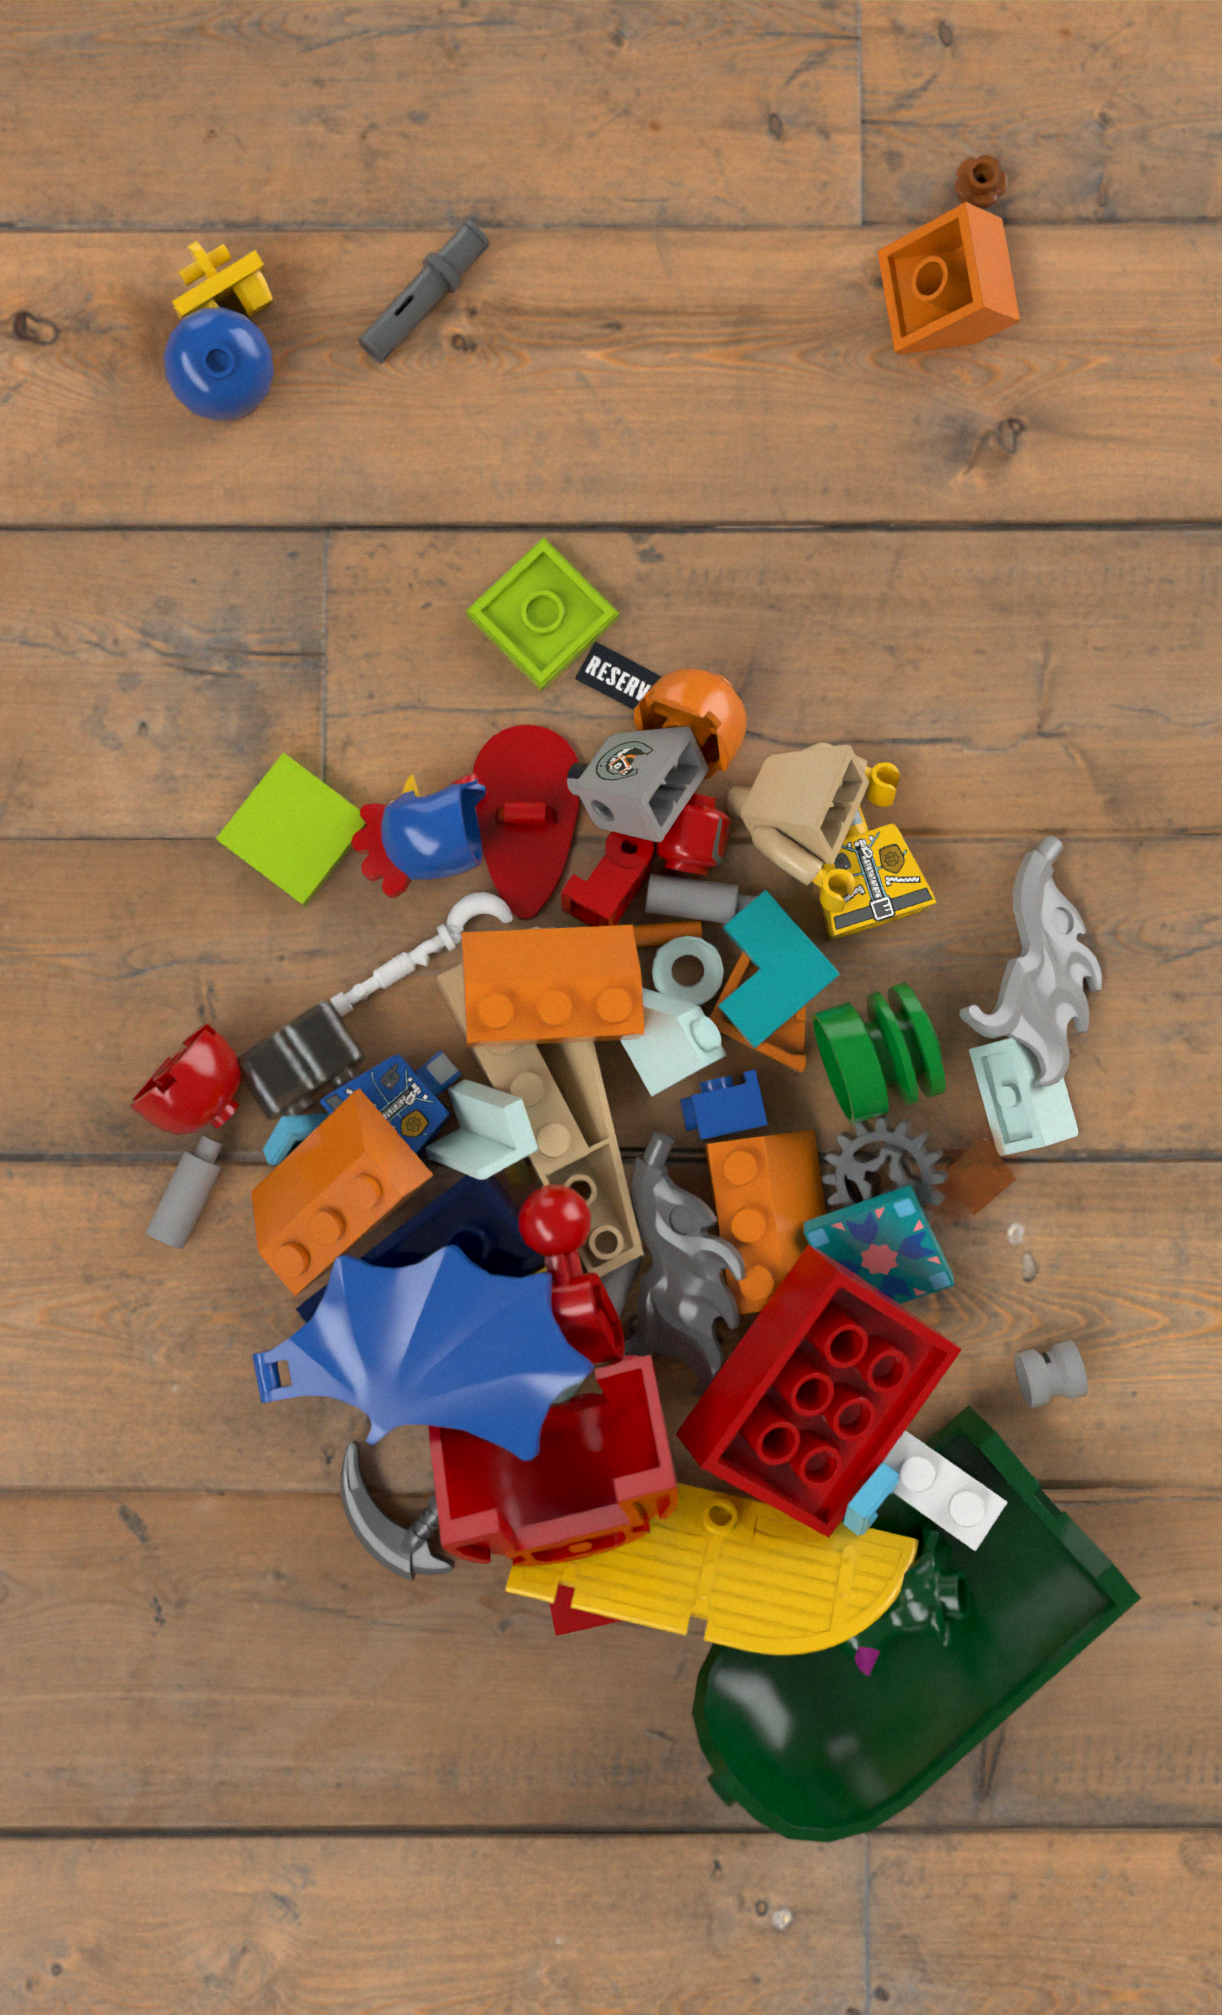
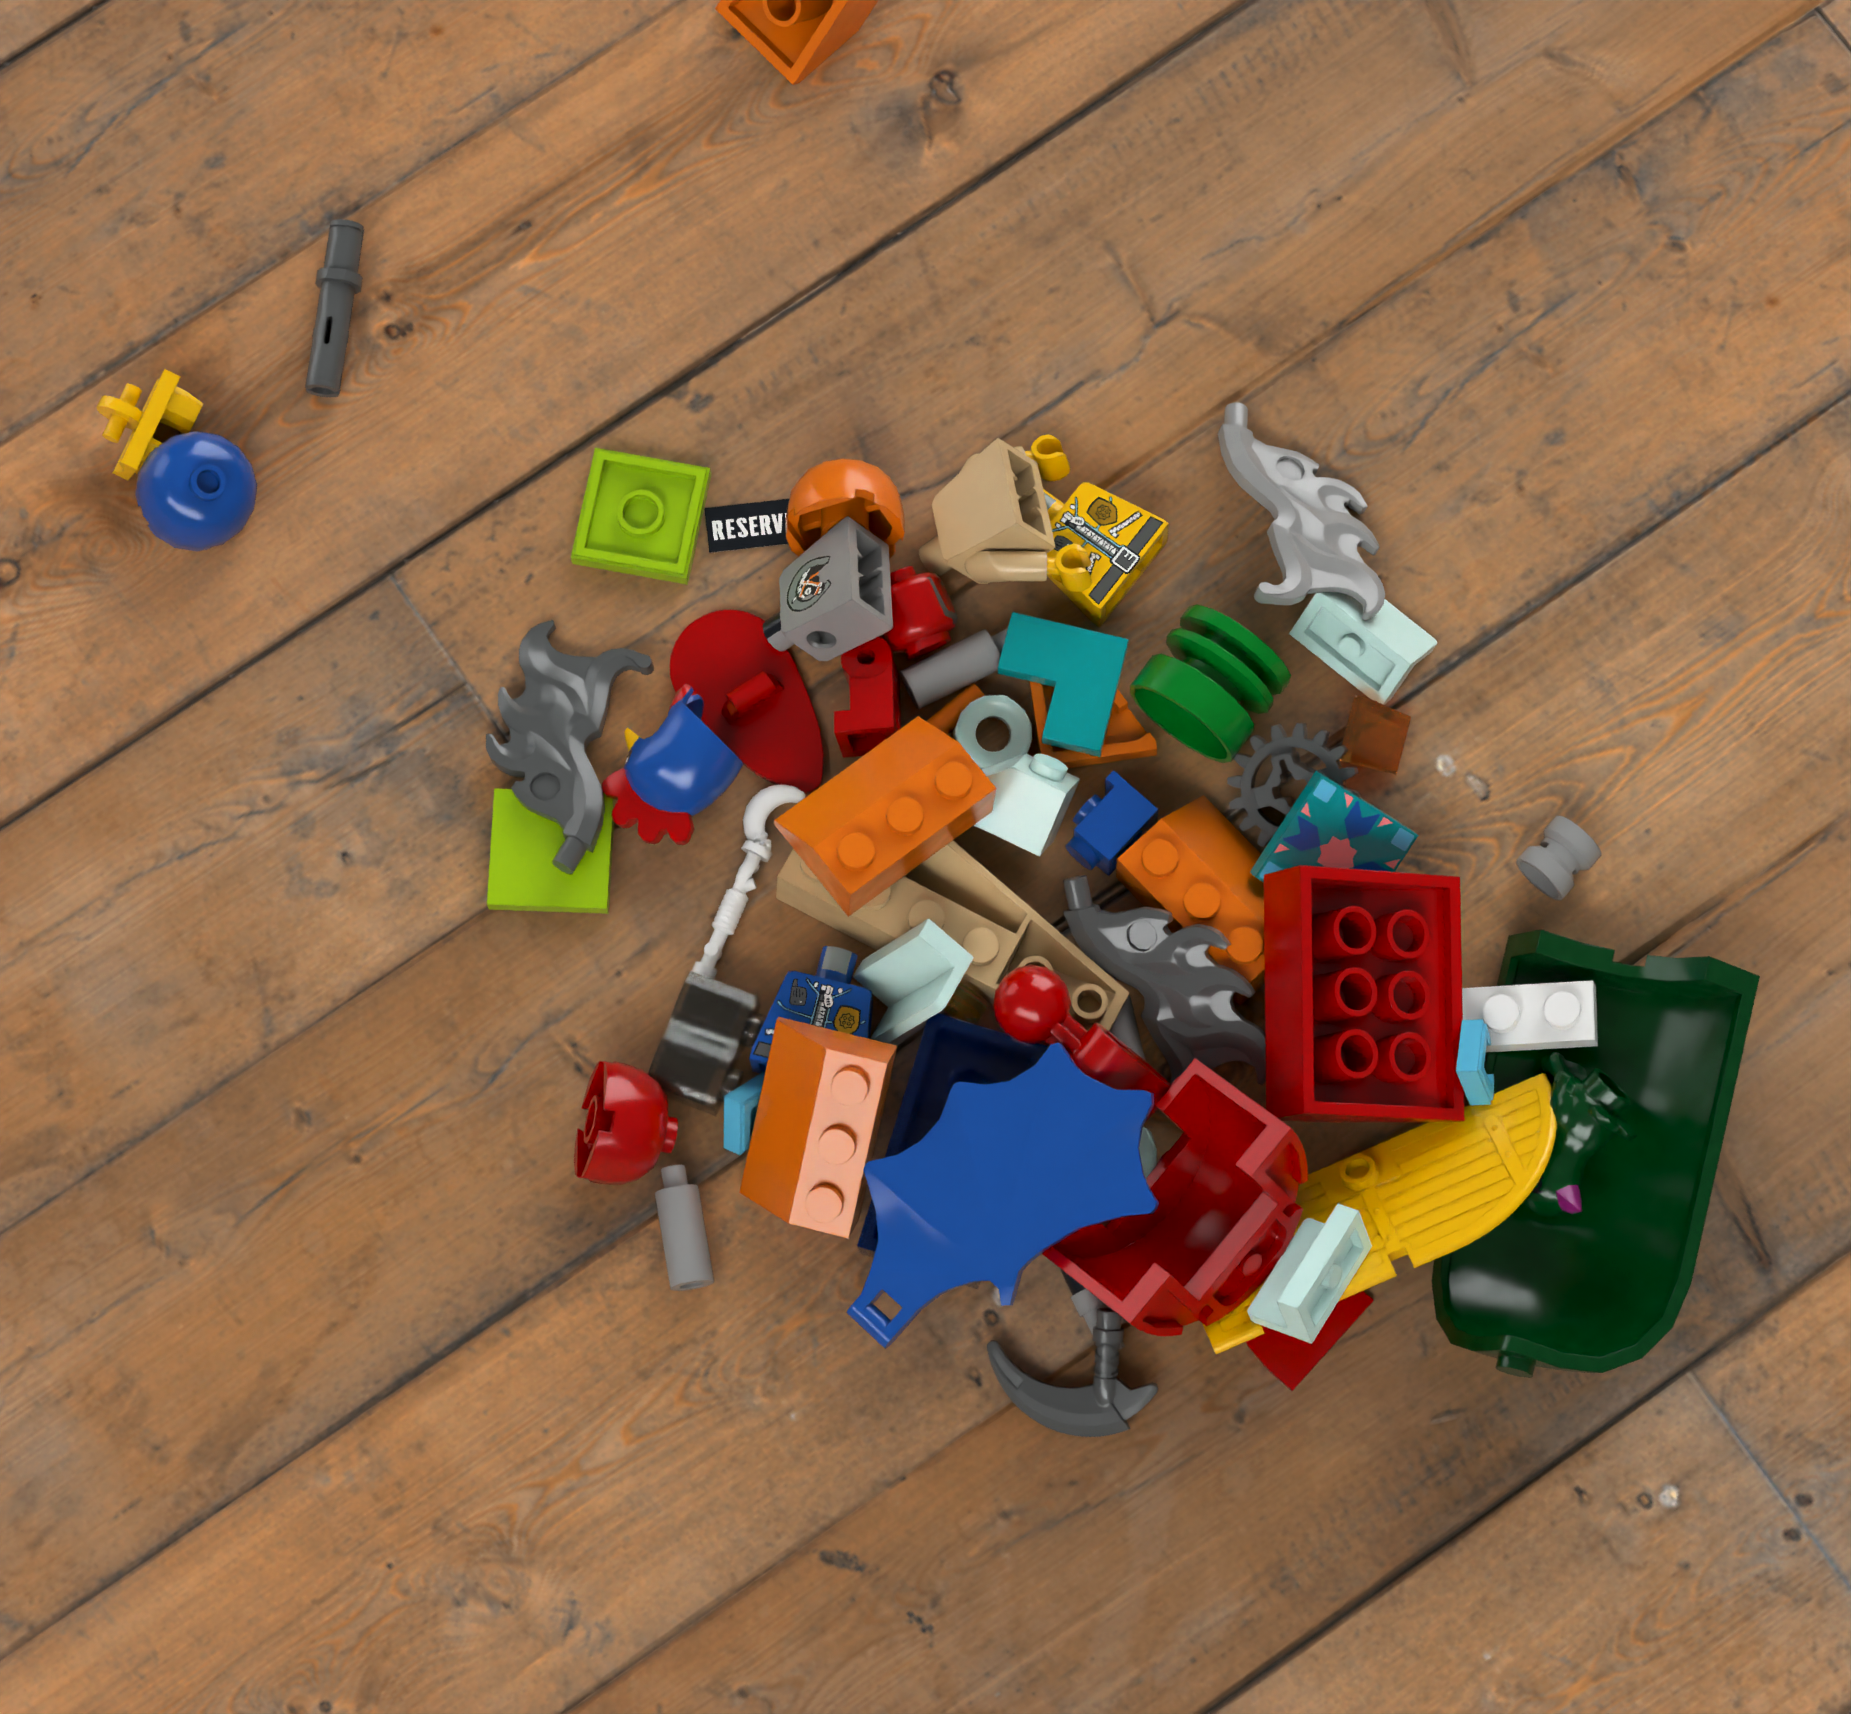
camera: 30 degrees left, 10 degrees down
(353, 739) = (550, 735): none -> dark grey piece
(618, 1588) = (1312, 1274): none -> light aqua panel

